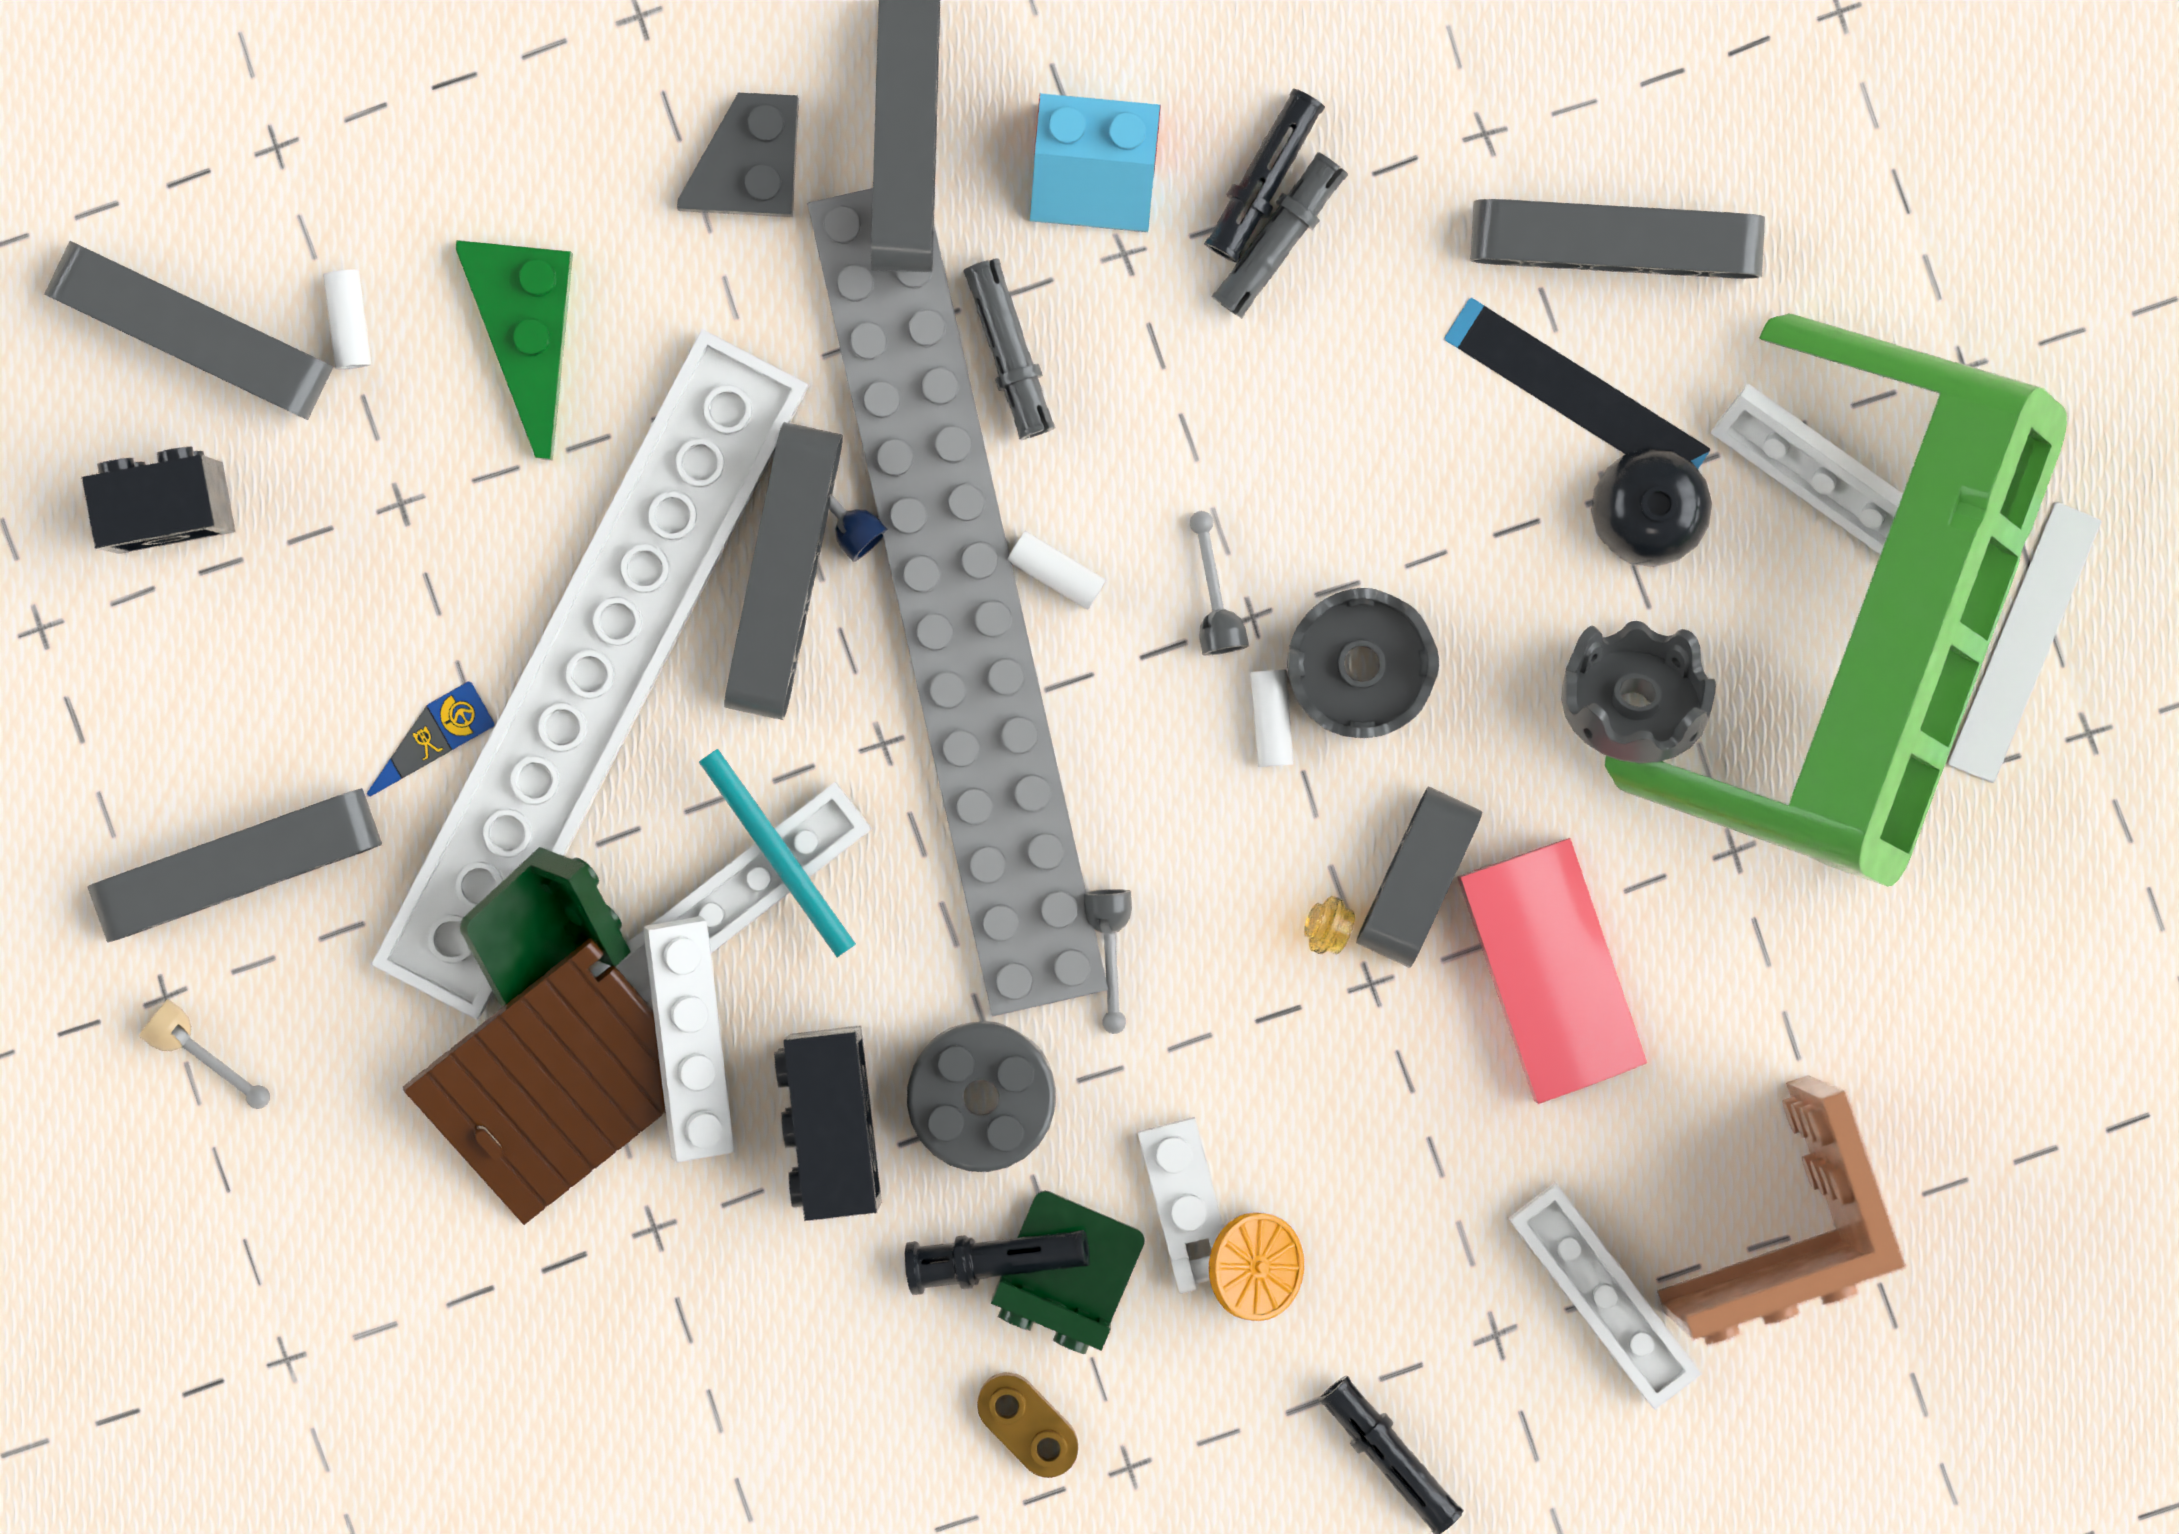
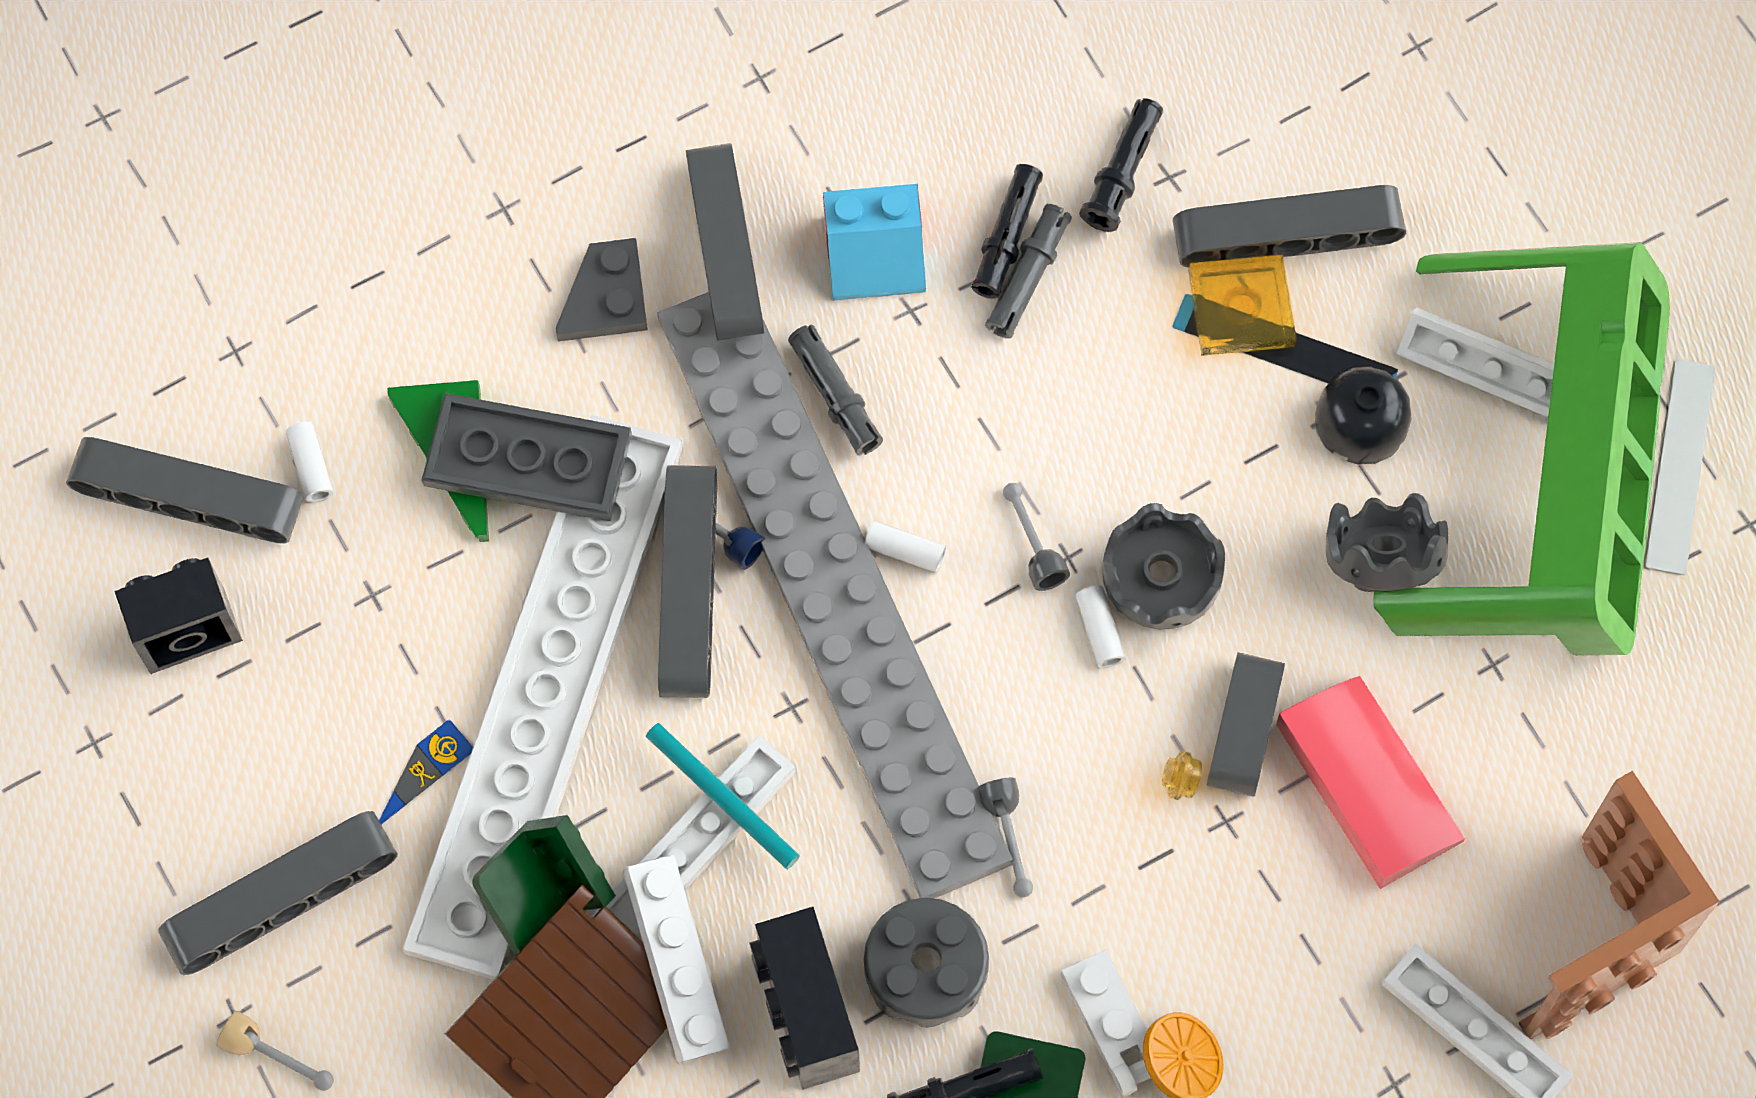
camera: 10 degrees left, 20 degrees down
(613, 373) = (527, 457): none -> dark grey tile
(1413, 135) = (1116, 181): none -> black pin
(1536, 330) = (1242, 305): none -> clear yellow tile

